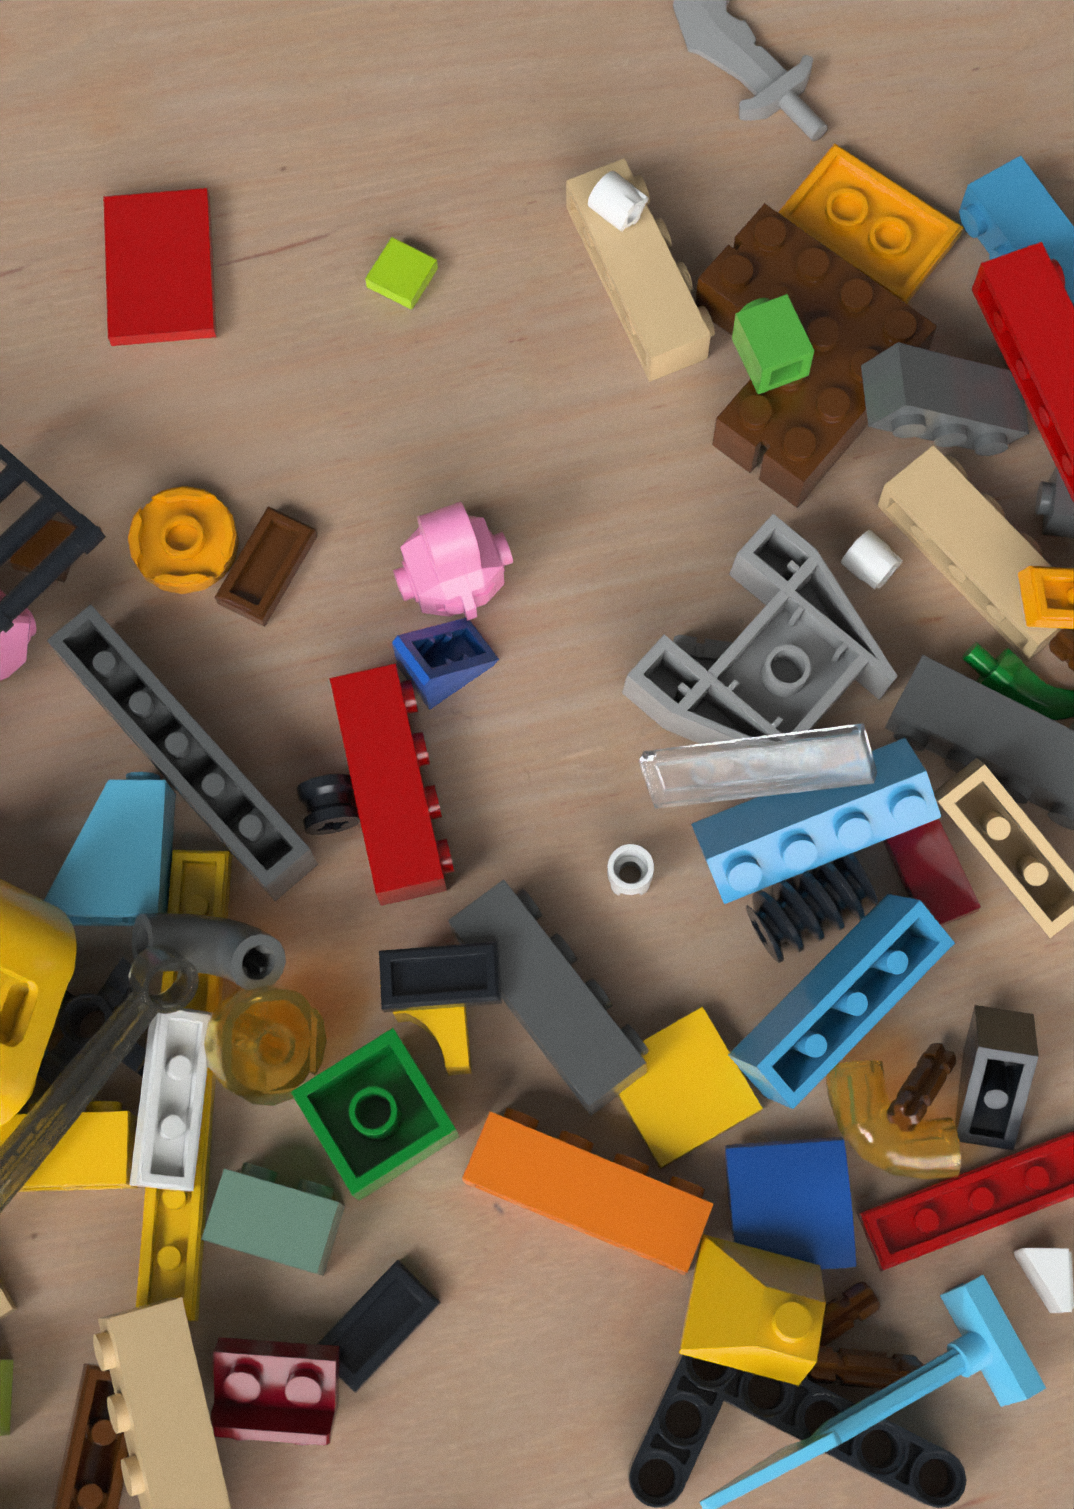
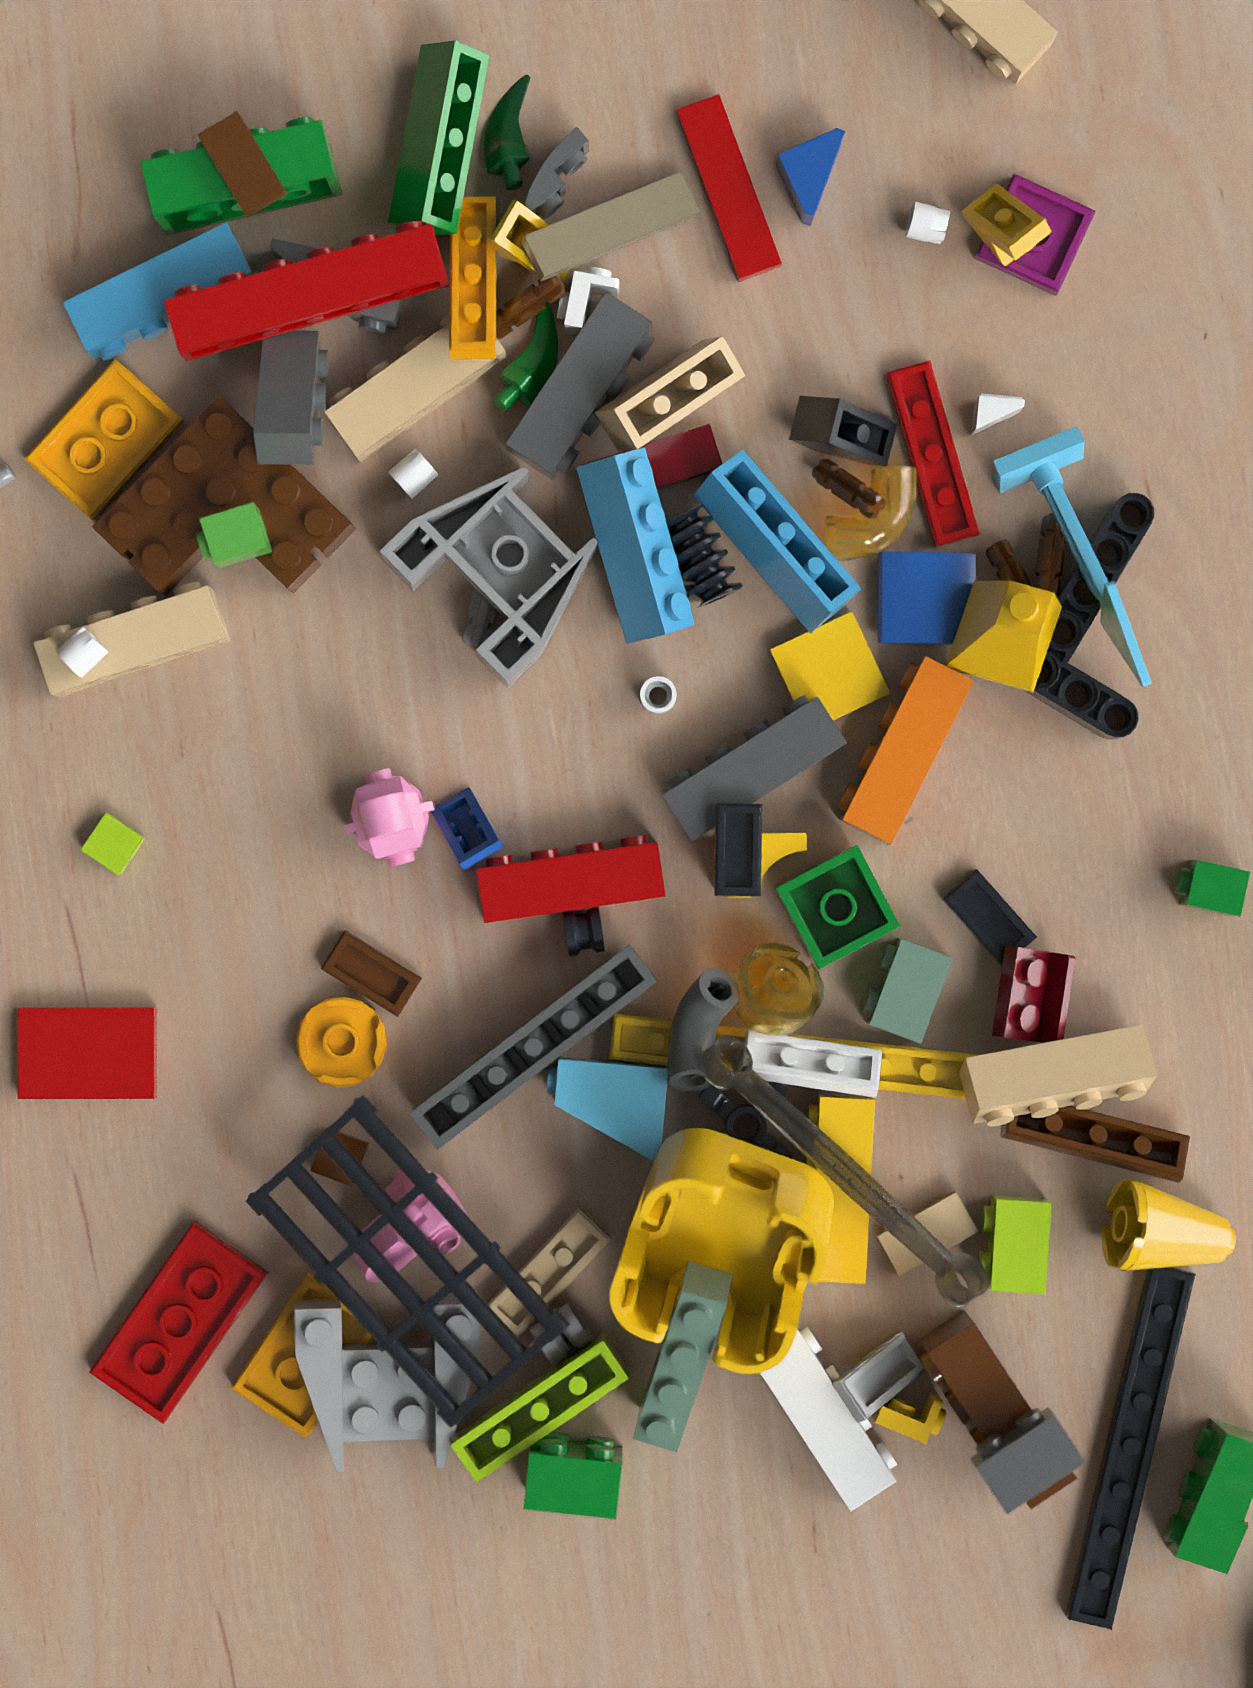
camera: 85 degrees left, 15 degrees up
(759, 766) = (590, 586): clear tile -> none

